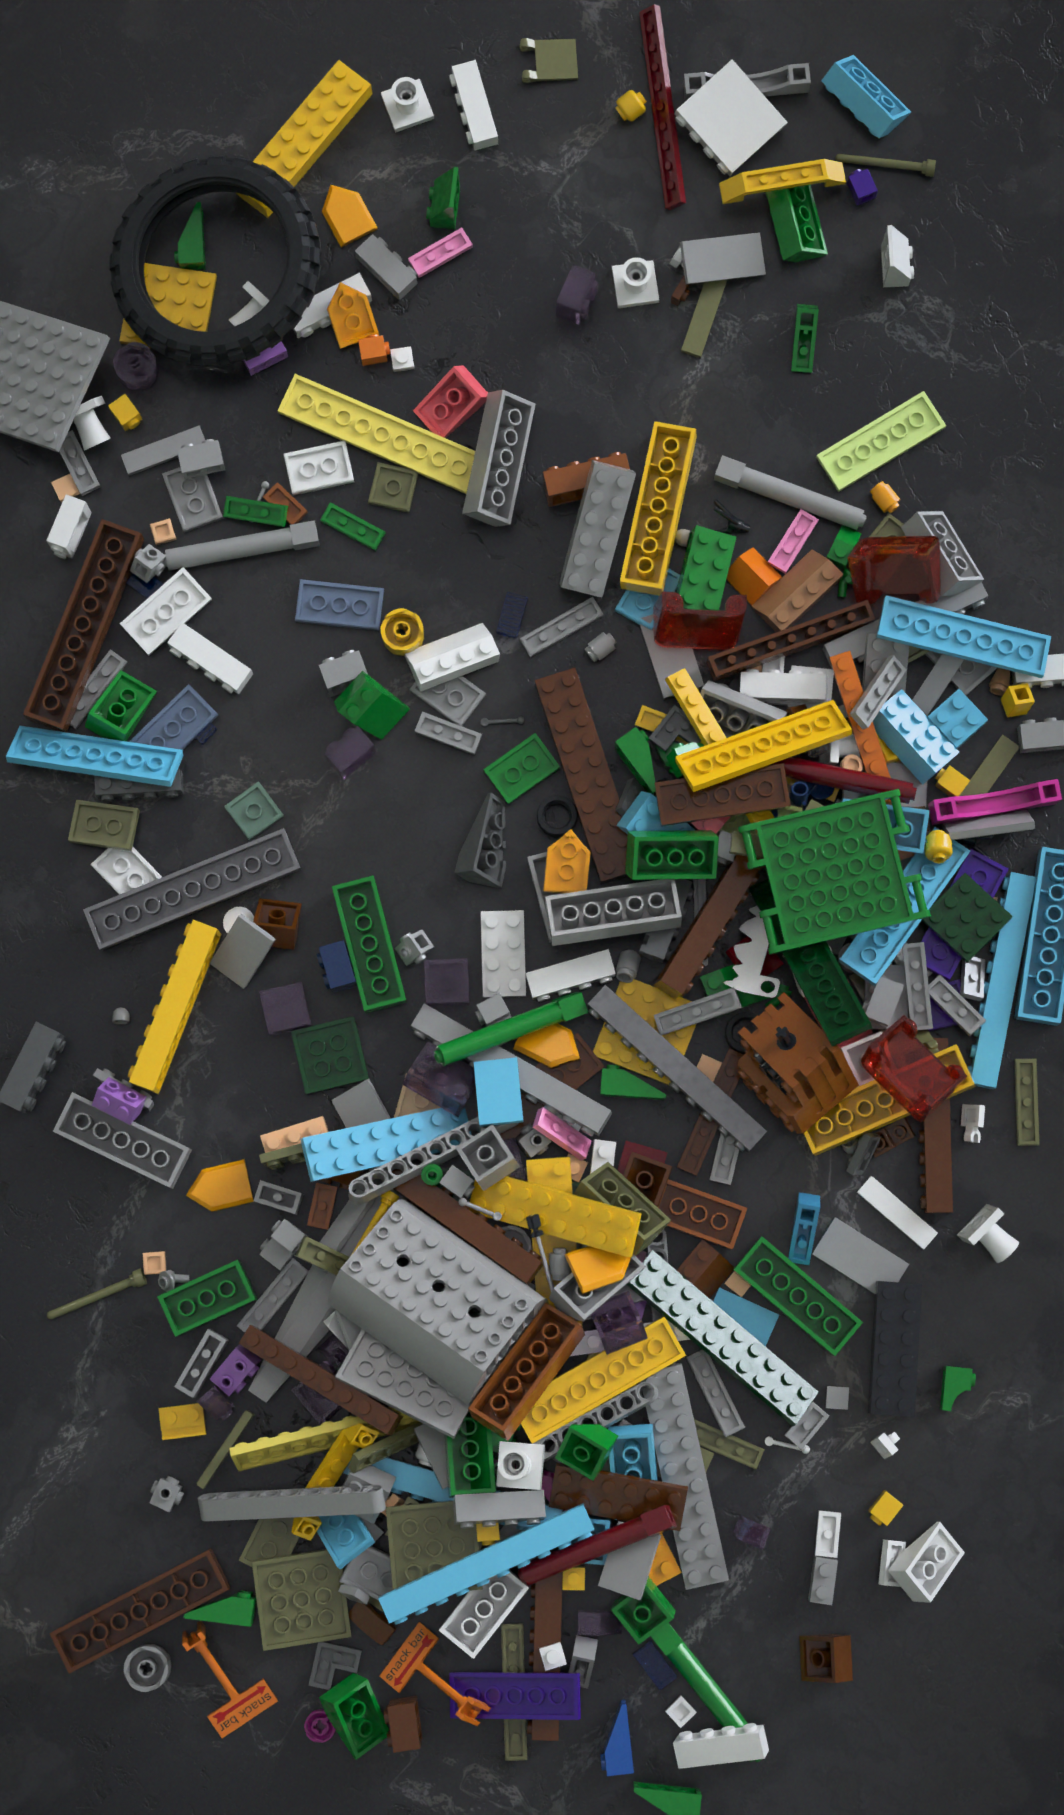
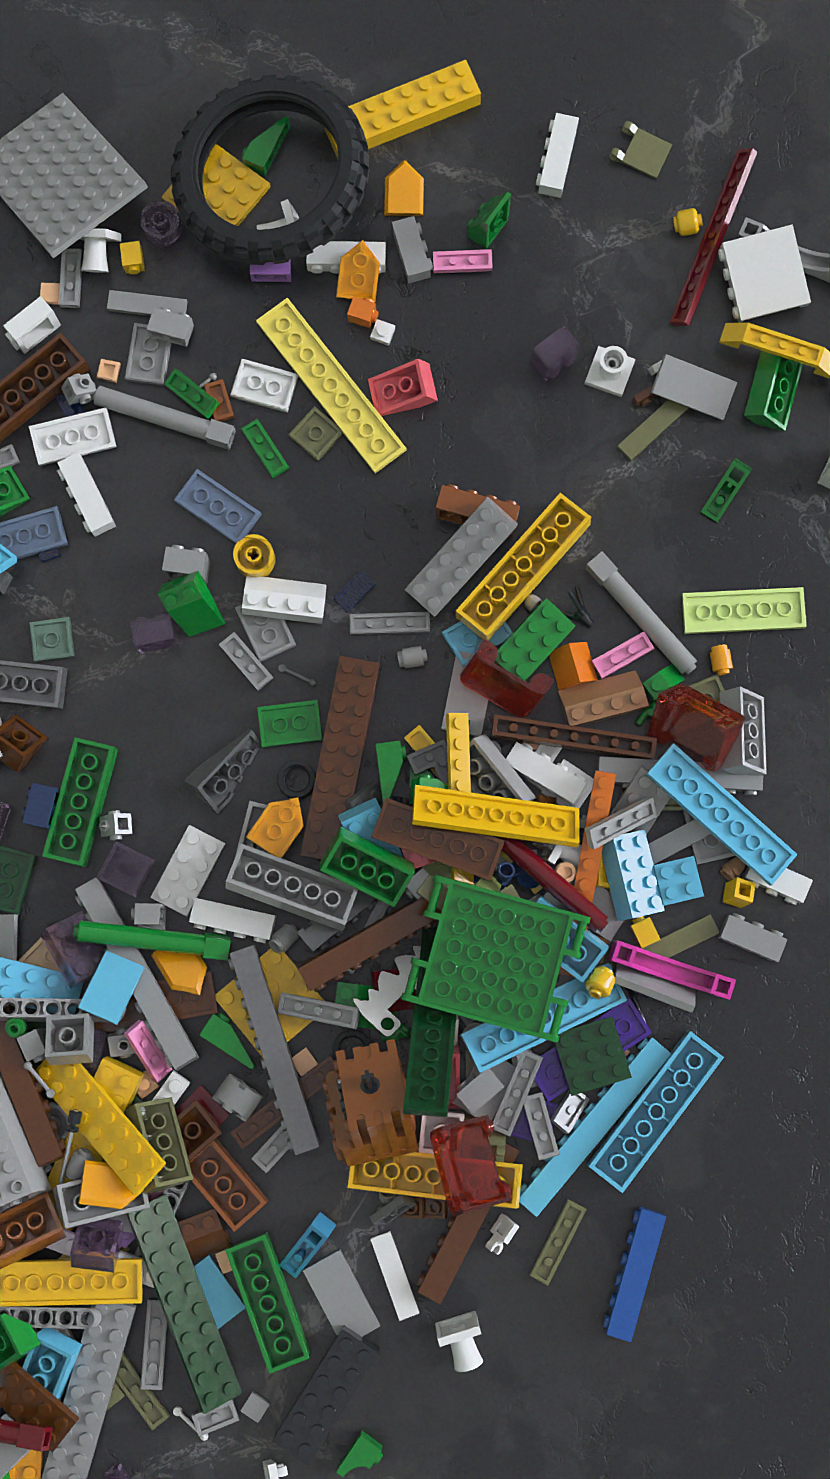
camera: 30 degrees right, 0 degrees up
(407, 104) = (503, 125): white plant -> none
(499, 458) = (414, 455): light grey brick -> none
(666, 1130) = (237, 1097): none -> light grey brick

